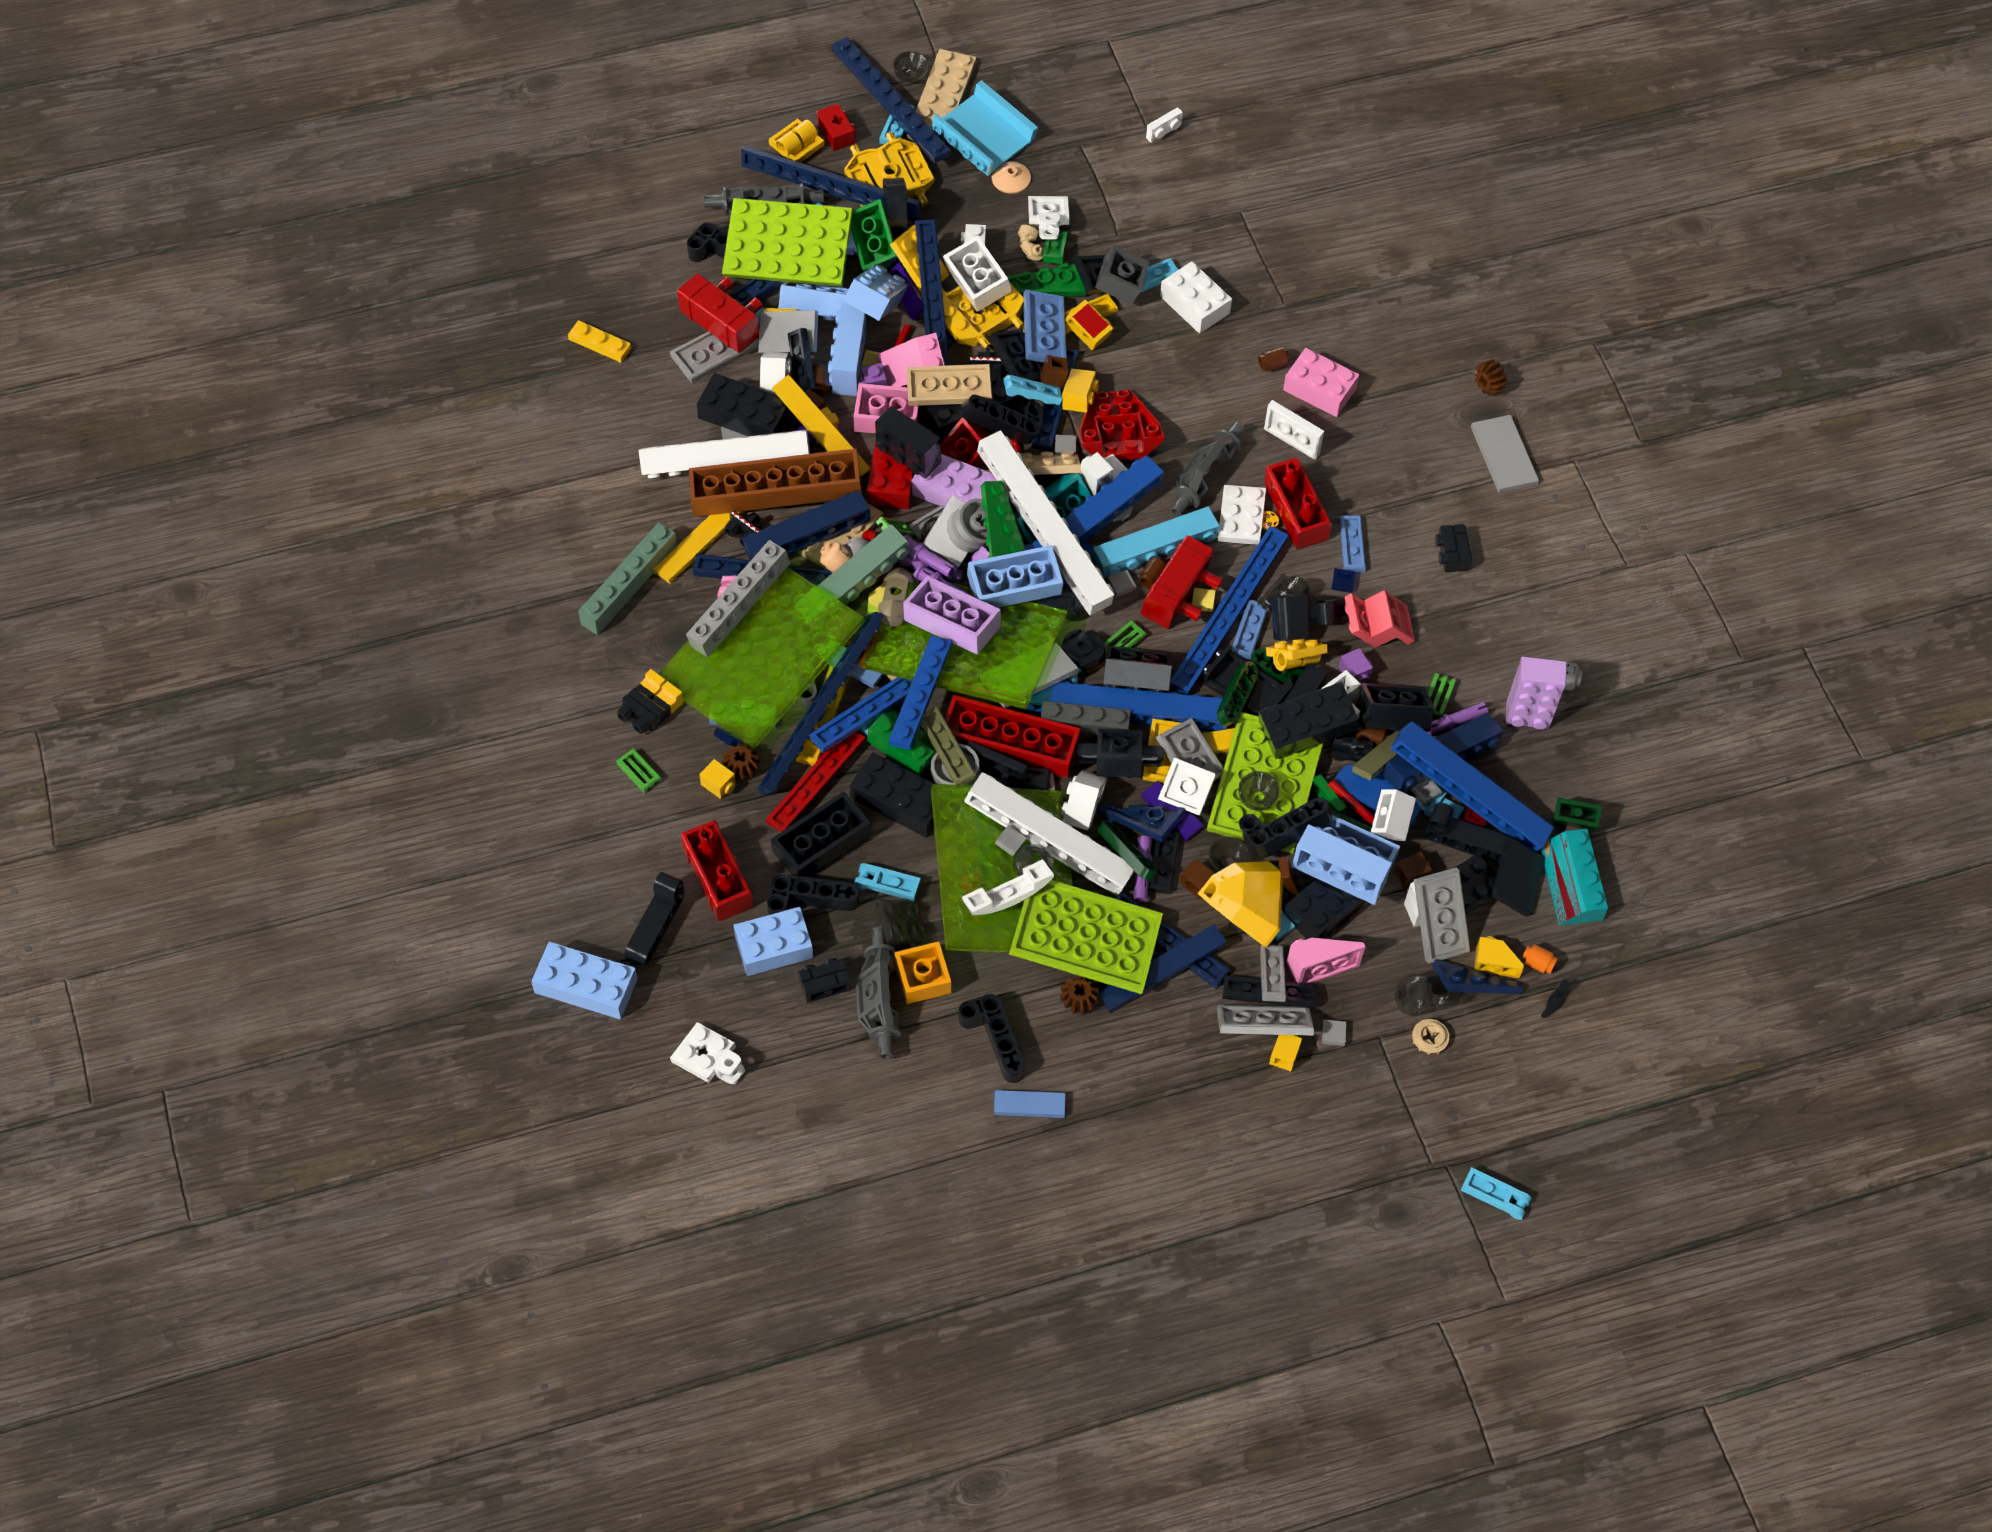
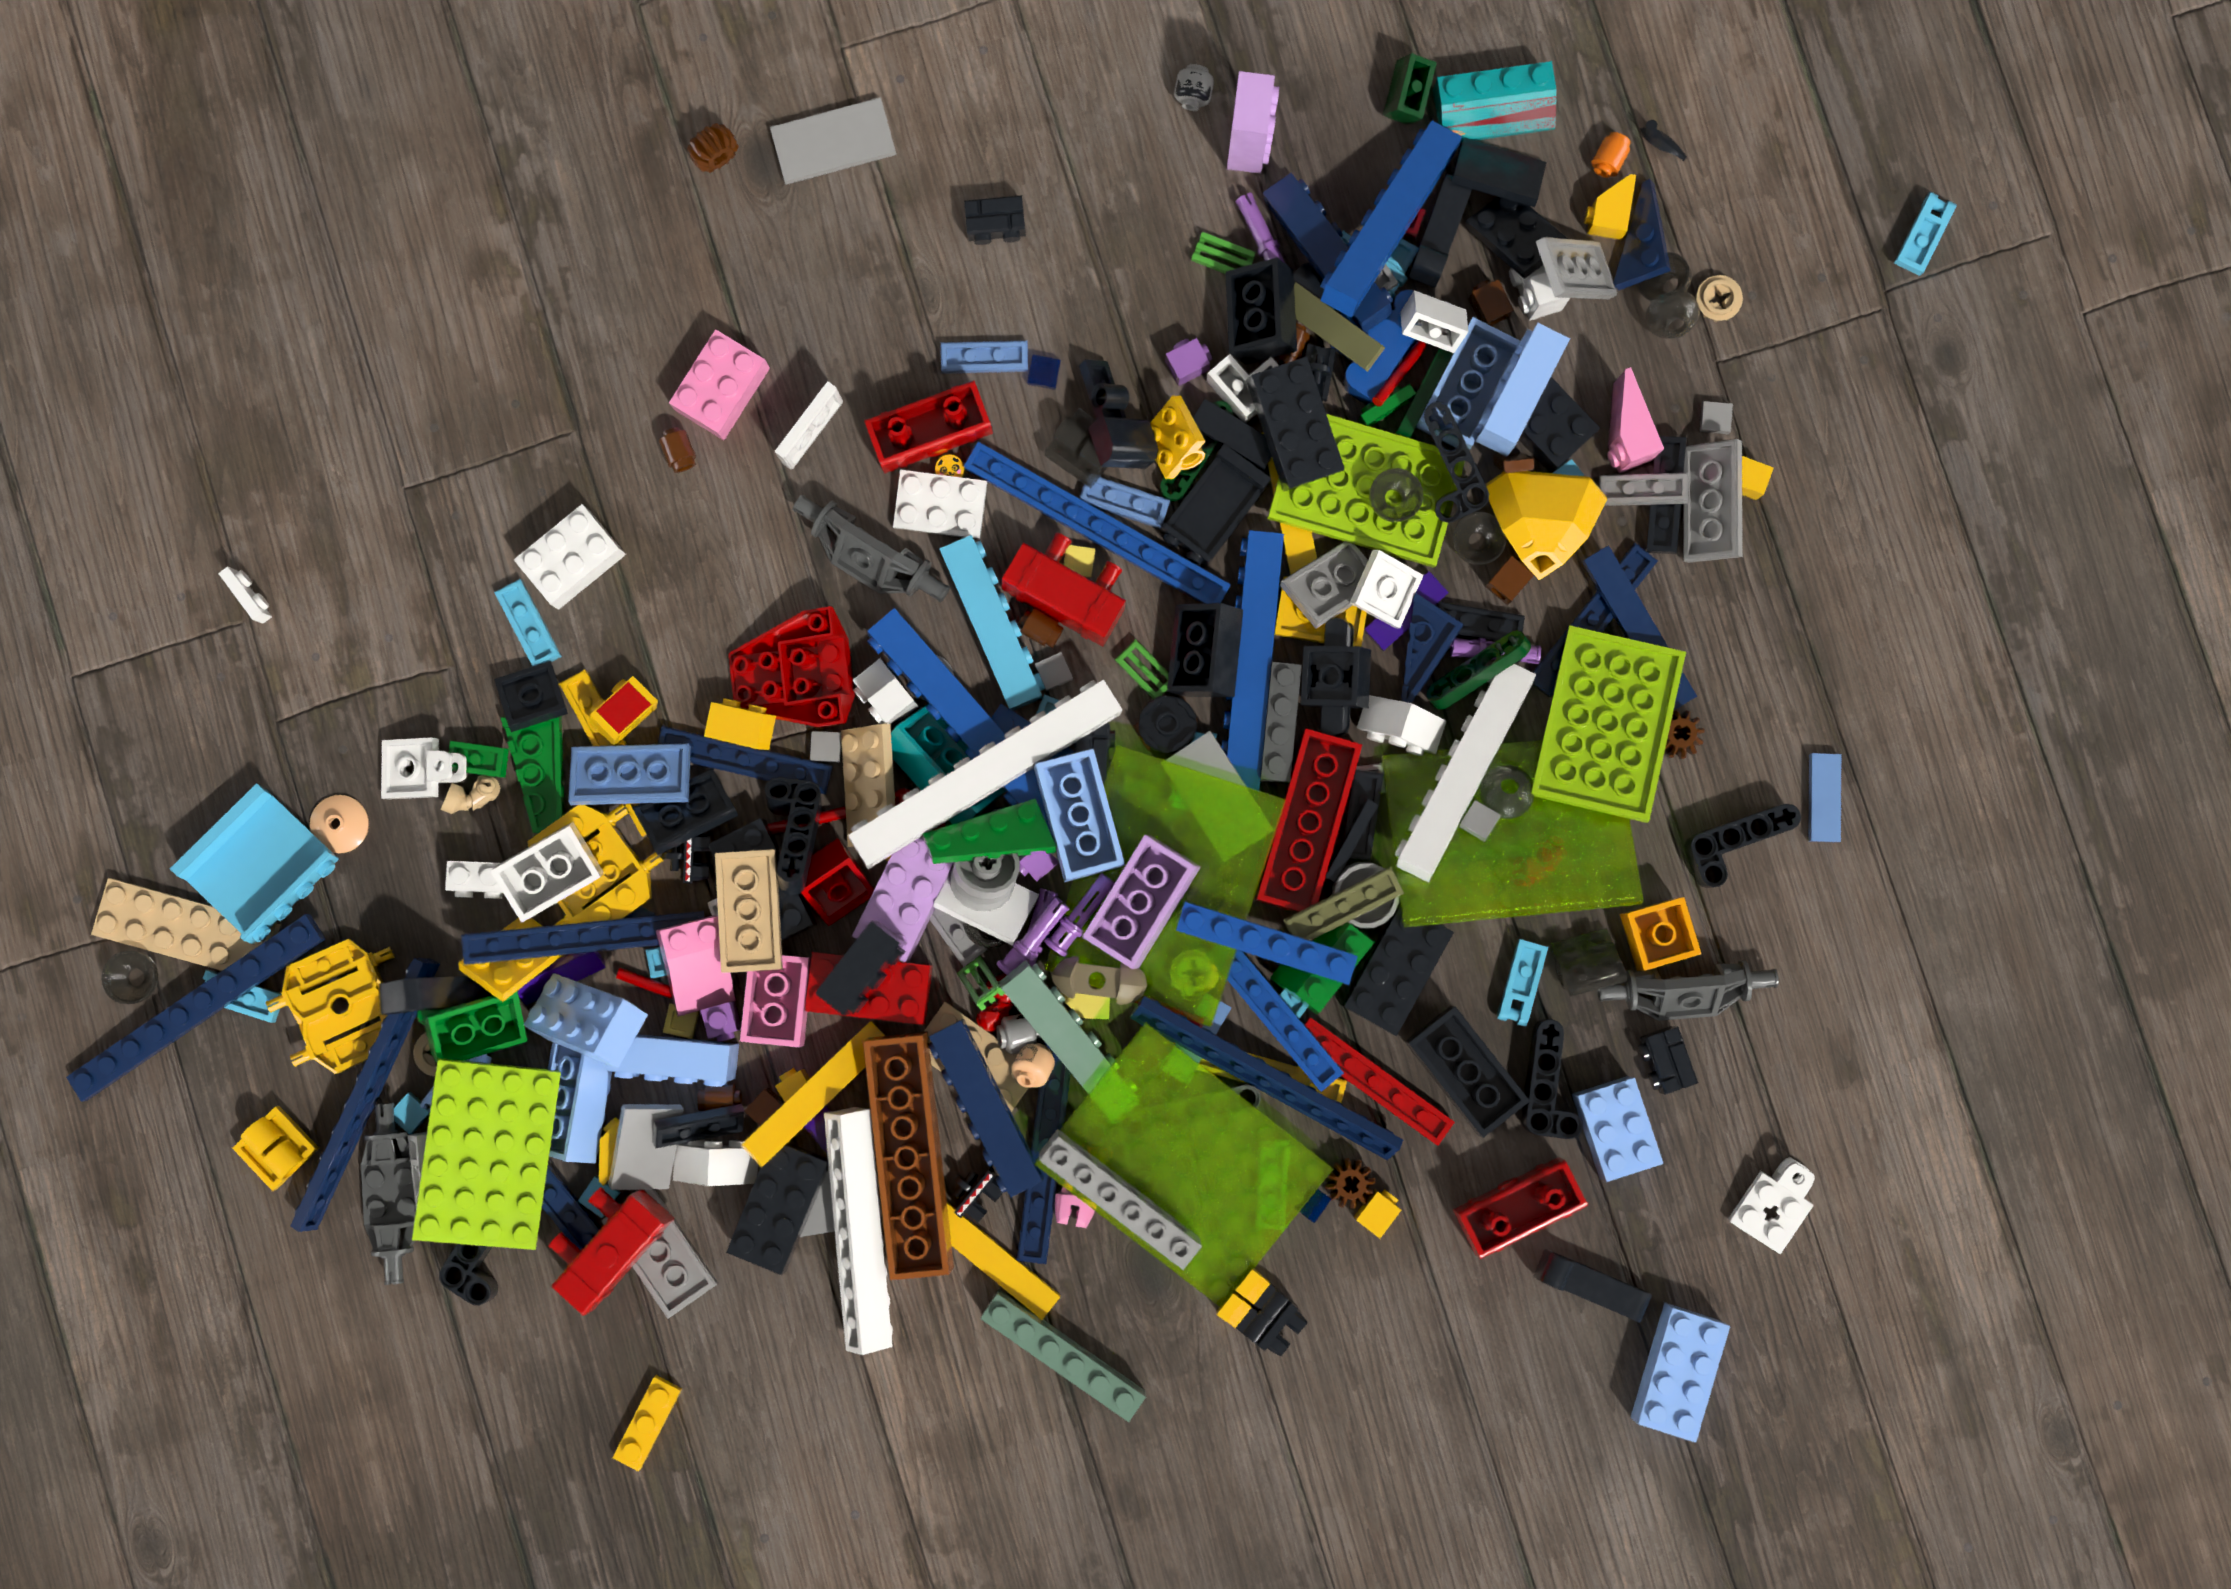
camera: 85 degrees left, 25 degrees up
(649, 783) = (1352, 1311): bright green tile -> none
(836, 127) = (264, 1086): red brick -> none
(1011, 892) = (1565, 823): white slope -> none
(1032, 389) = (748, 791): medium azure plate -> none
(1054, 371) = (716, 760): reddish brown brick -> none
(1122, 274) = (541, 660): dark grey brick -> none
(1241, 696) = (1279, 531): dark green beam -> none
(1379, 619) = (1117, 325): coral bracket -> none

